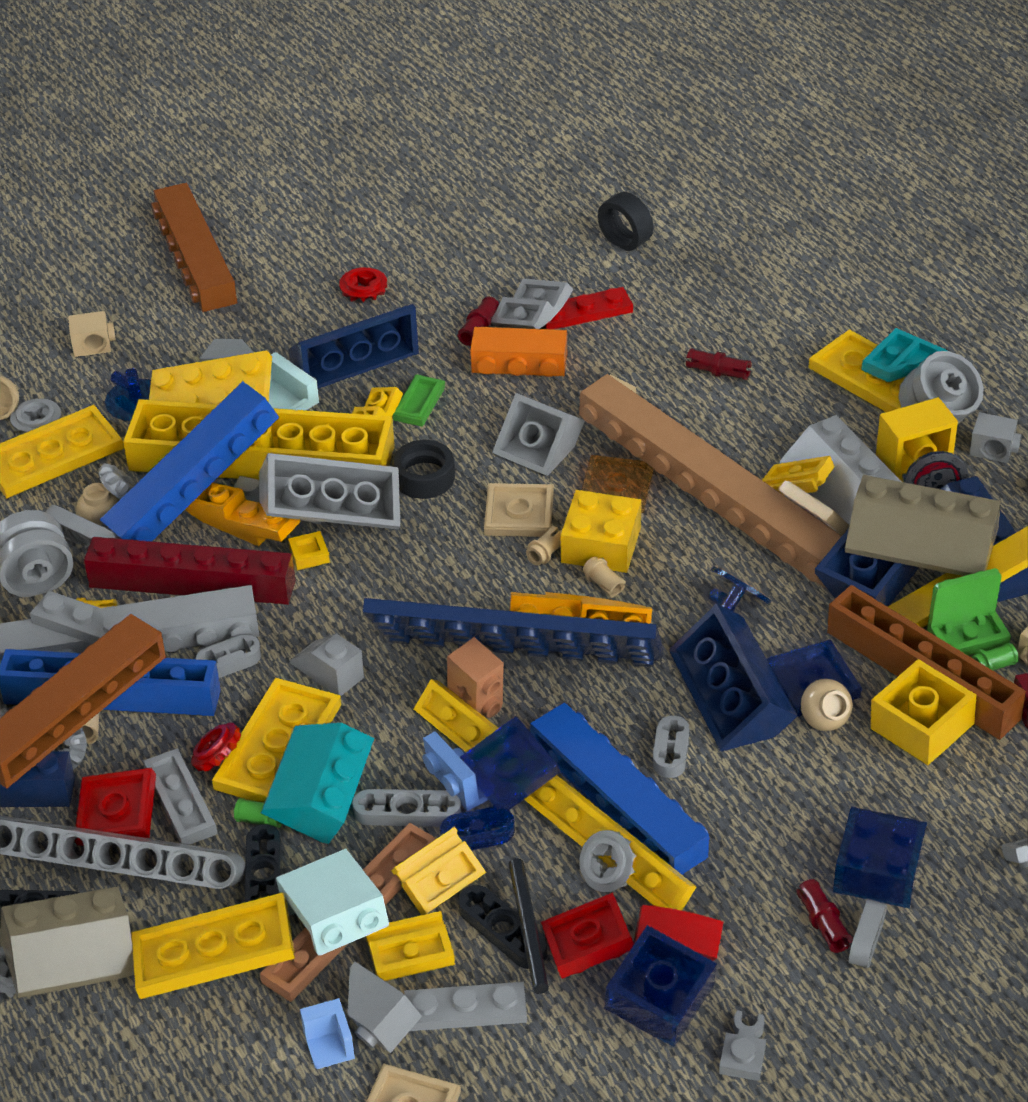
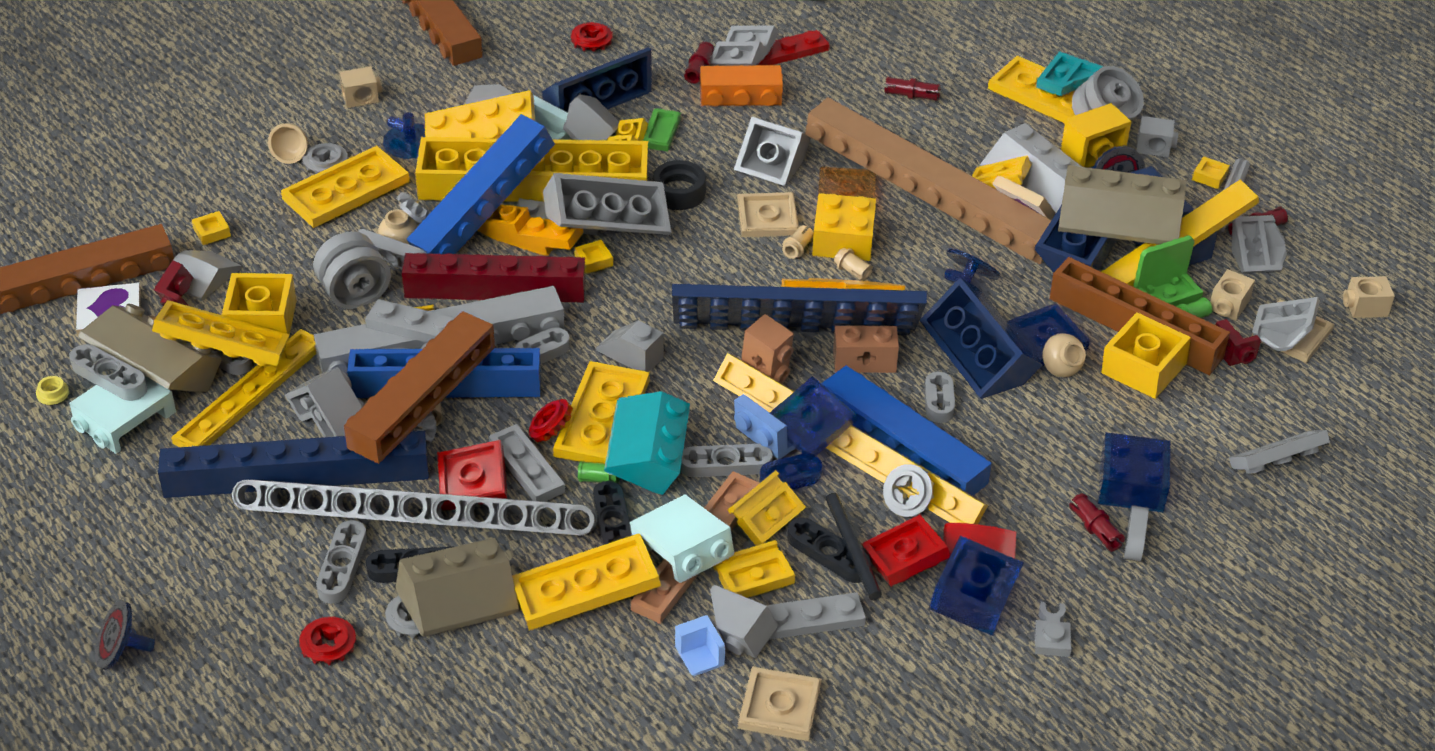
camera: 10 degrees left, 0 degrees up
(336, 386) = (589, 120): none -> light grey slope
(594, 682) = (866, 348): none -> nougat brick

